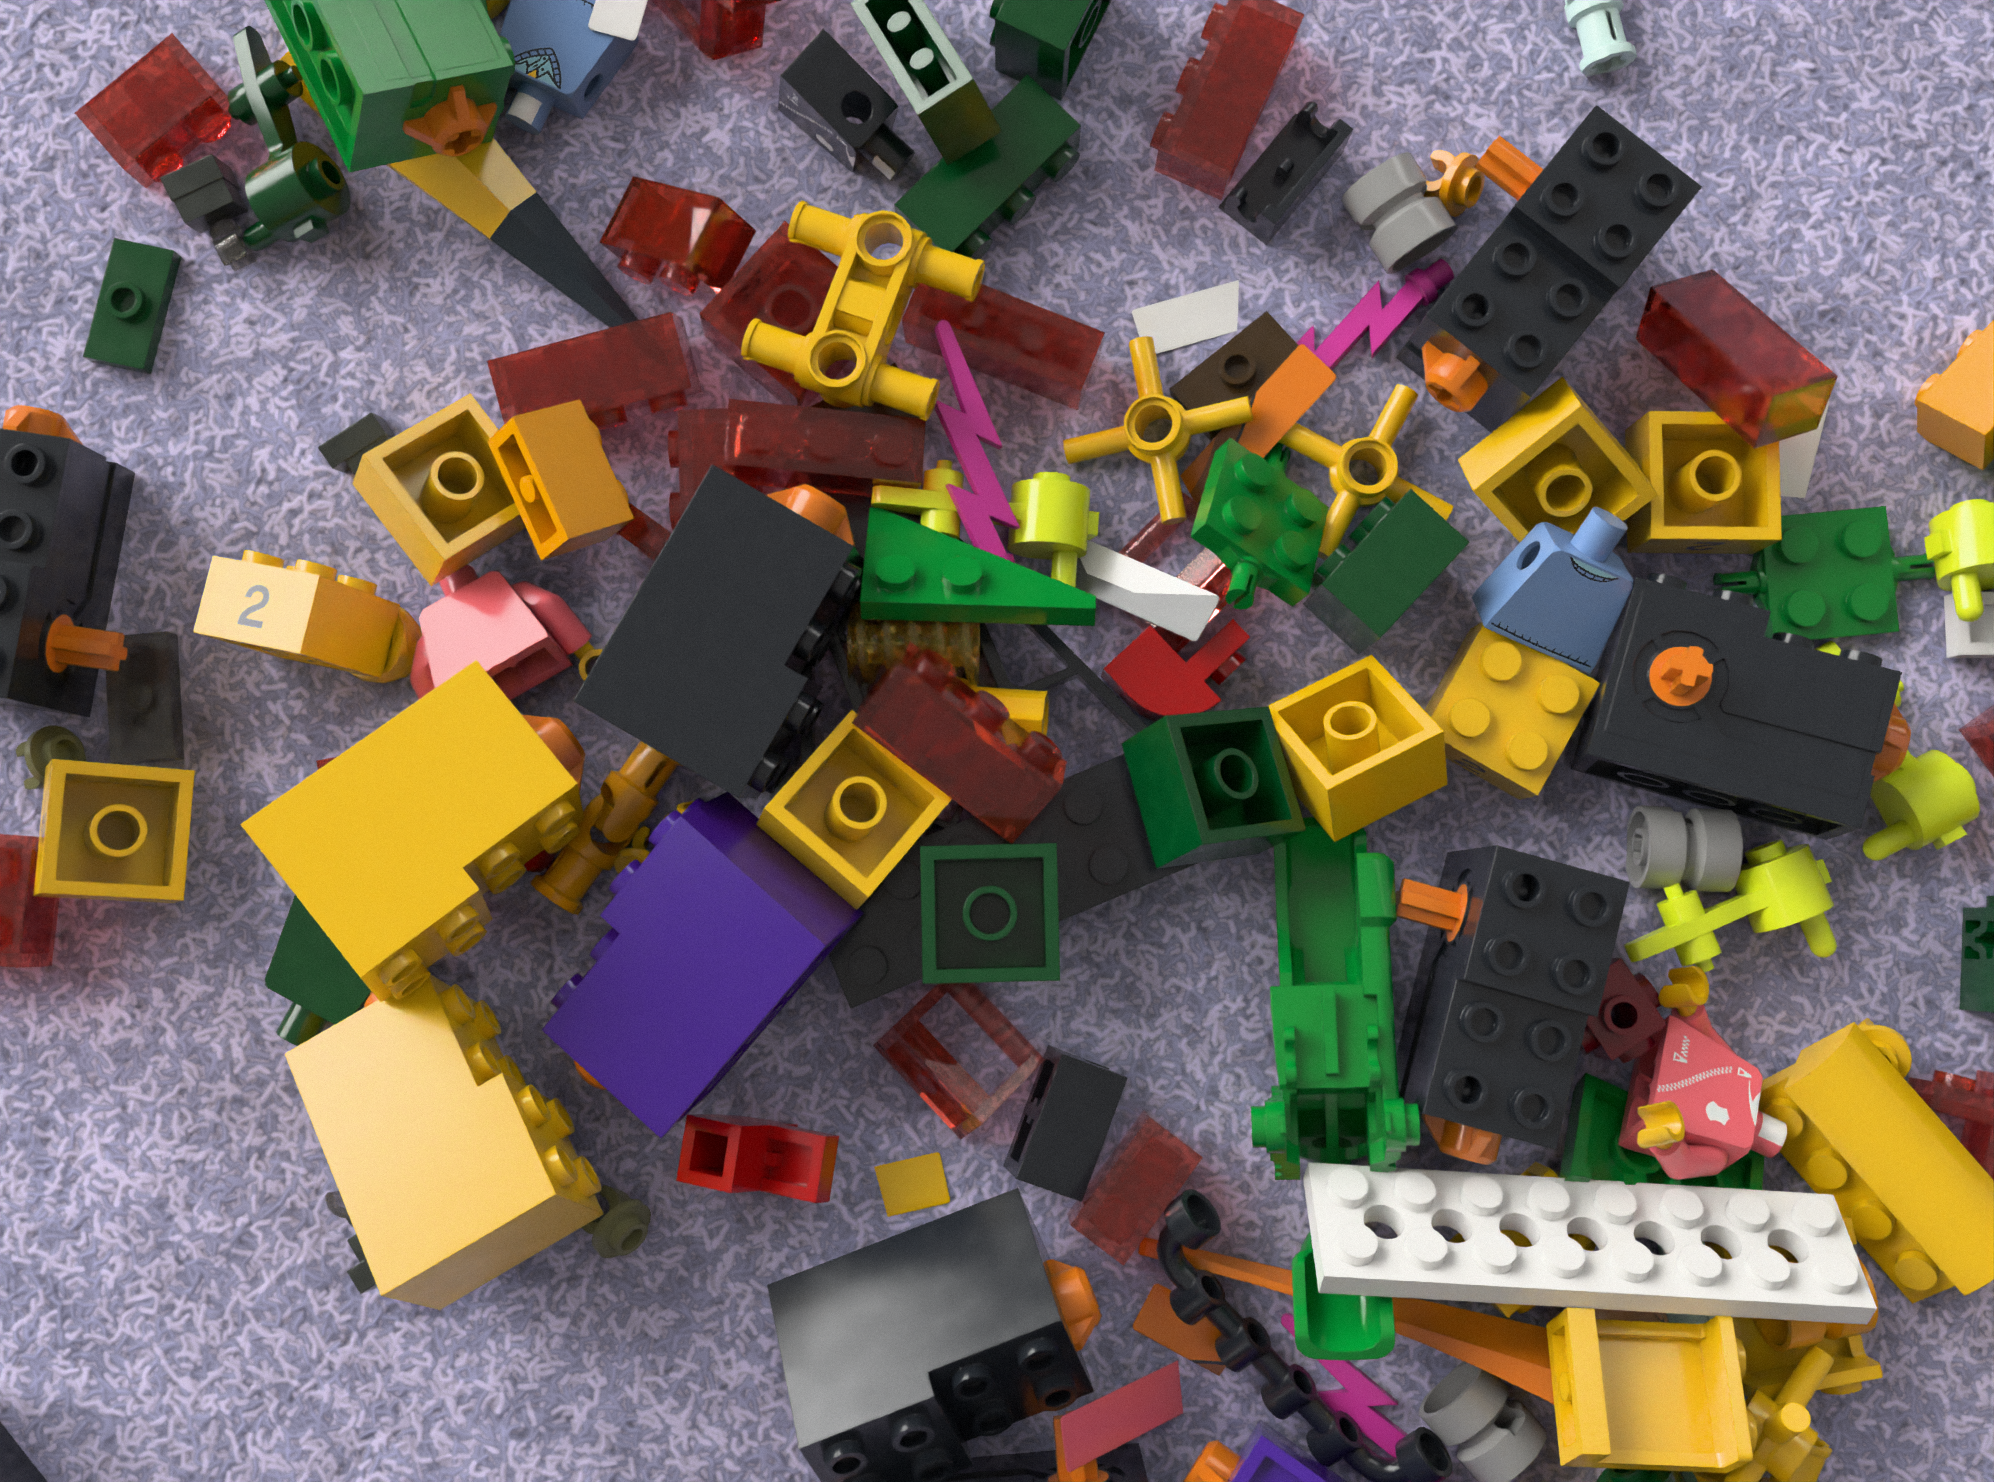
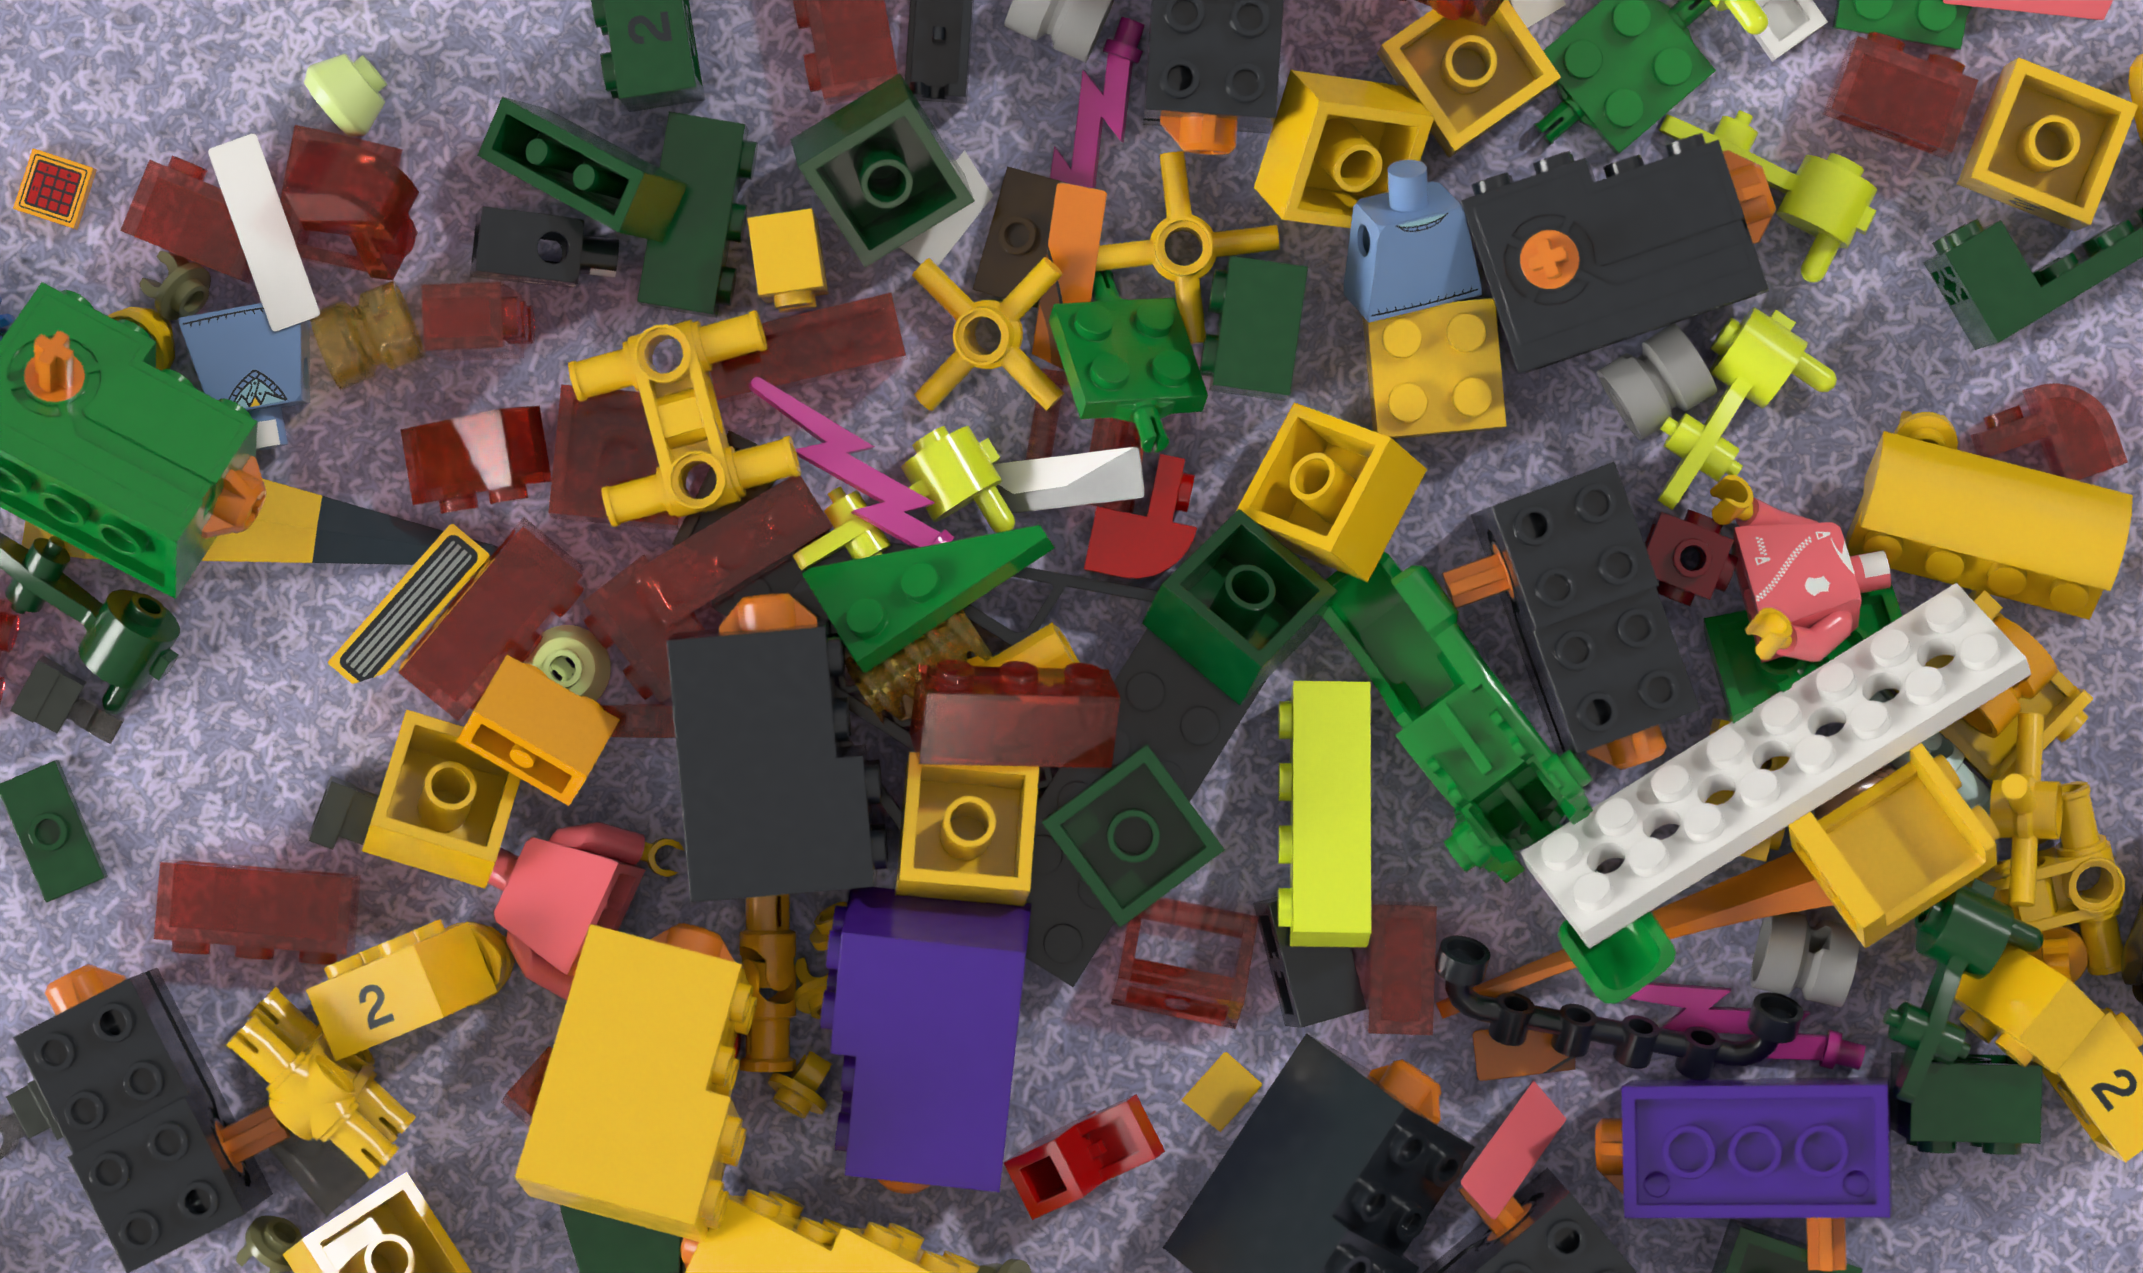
camera: 35 degrees left, 5 degrees up
(154, 645) = (314, 1091): none -> yellow piece
(239, 476) = (257, 910): none -> clear red brick
(538, 324) = (409, 606): none -> sticker
(563, 935) = (797, 1092): none -> yellow plate
(649, 470) = (590, 658): none -> yellowish green cone
(653, 88) = (367, 335): none -> clear yellow wheel
(750, 118) = (476, 321): none -> clear red brick
(1041, 248) = (788, 259): none -> yellow brick
(1165, 235) = (882, 170): none -> dark green brick
(1165, 1015) = (1328, 814): none -> neon yellow brick

